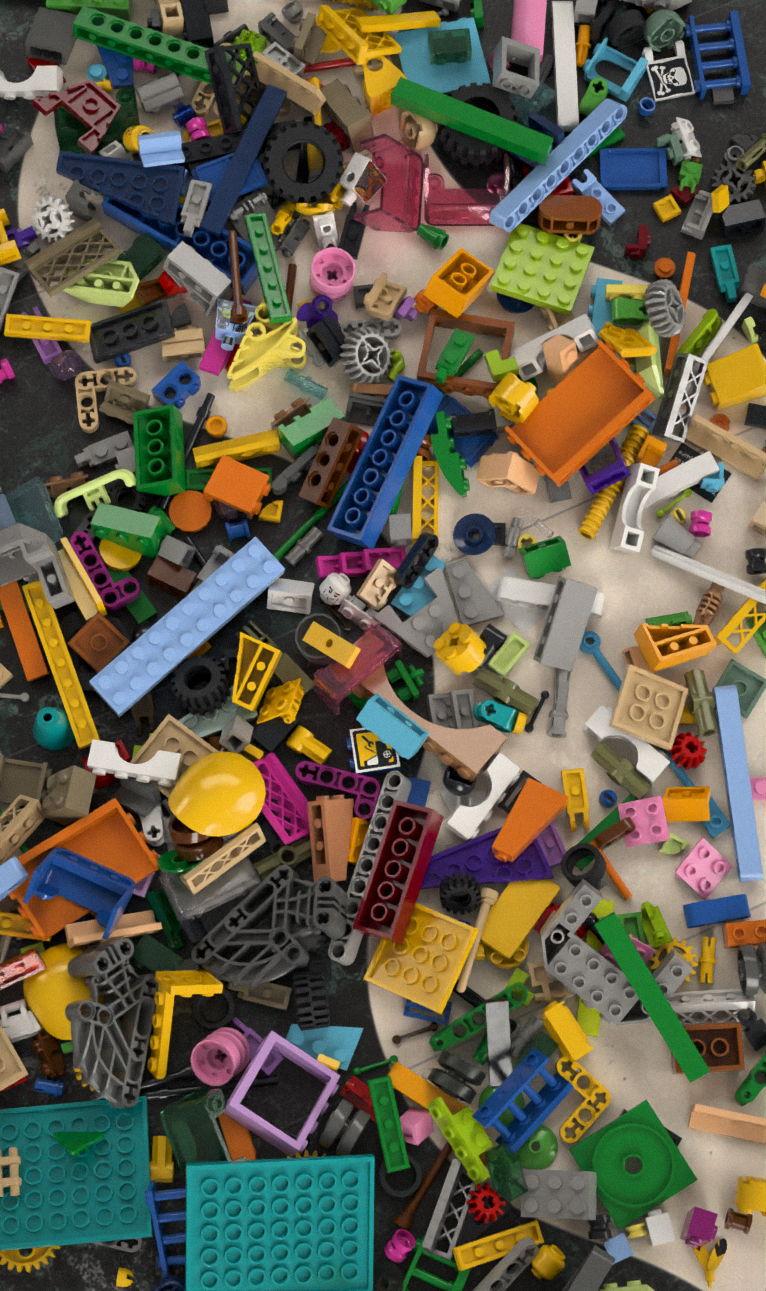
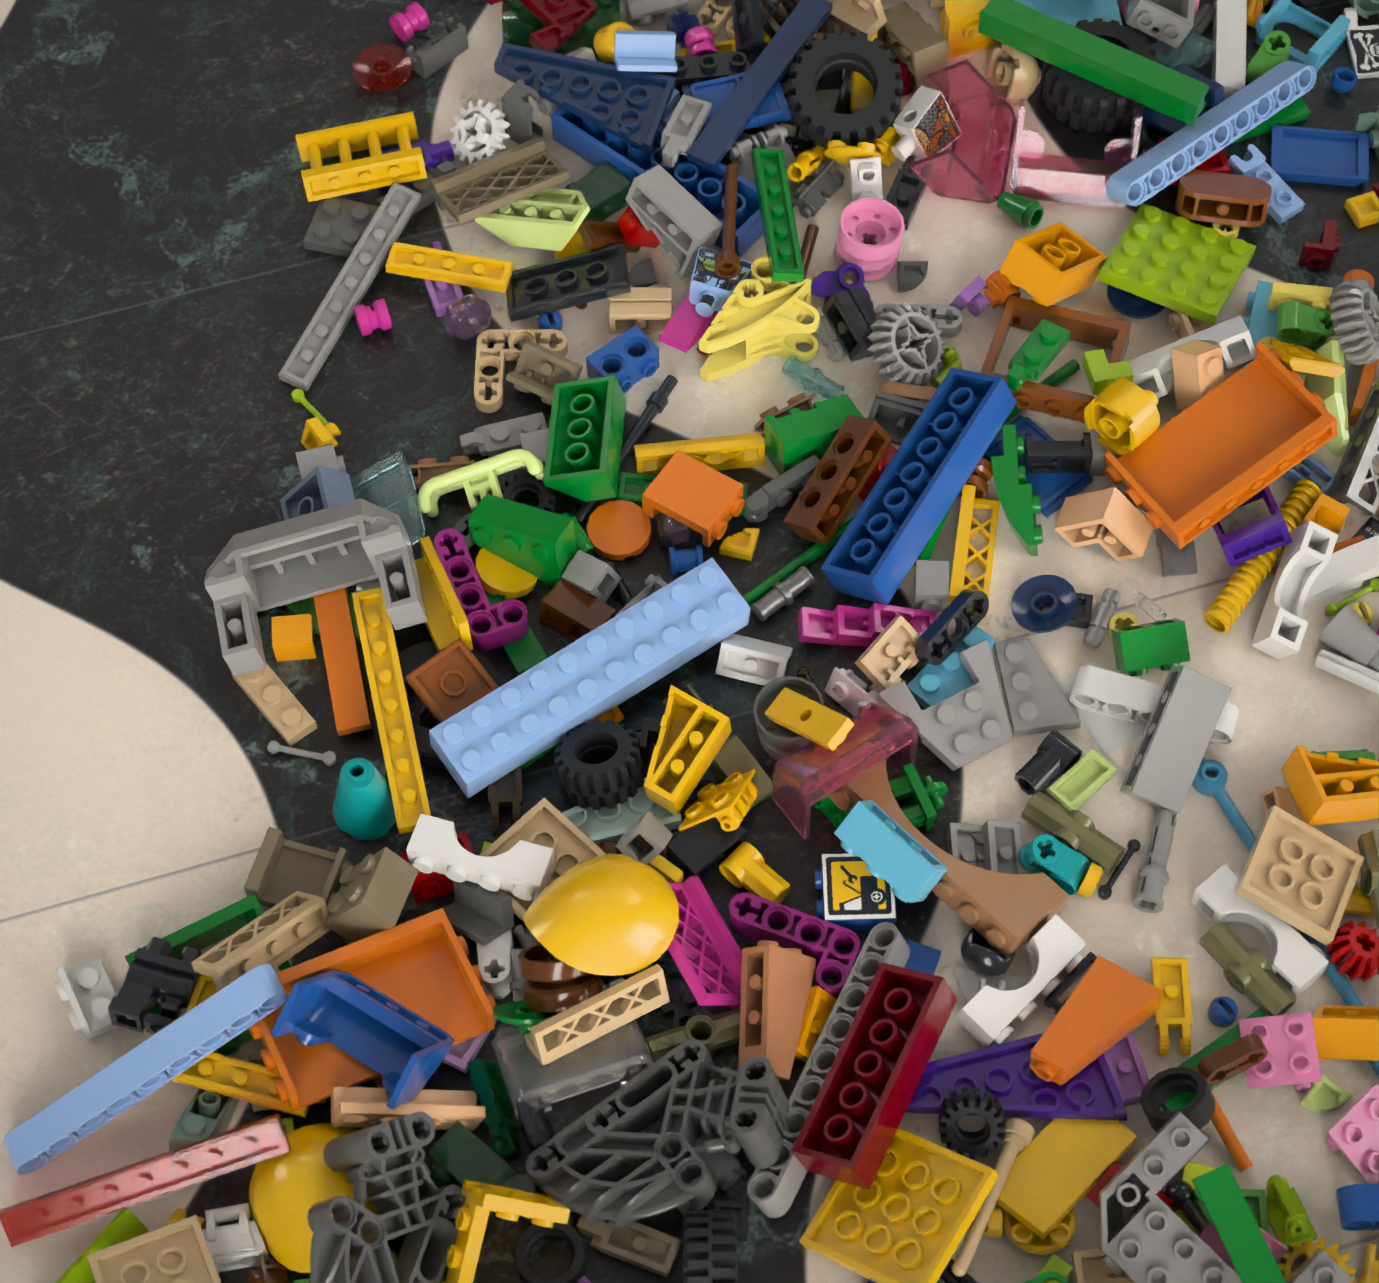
camera: 10 degrees right, 15 degrees down
(216, 426) = (674, 422): light orange tile -> none
(335, 588) = (823, 653): white head -> none
(384, 298) = (940, 279): tan bracket -> none
(460, 648) = (1007, 756): yellow brick -> none

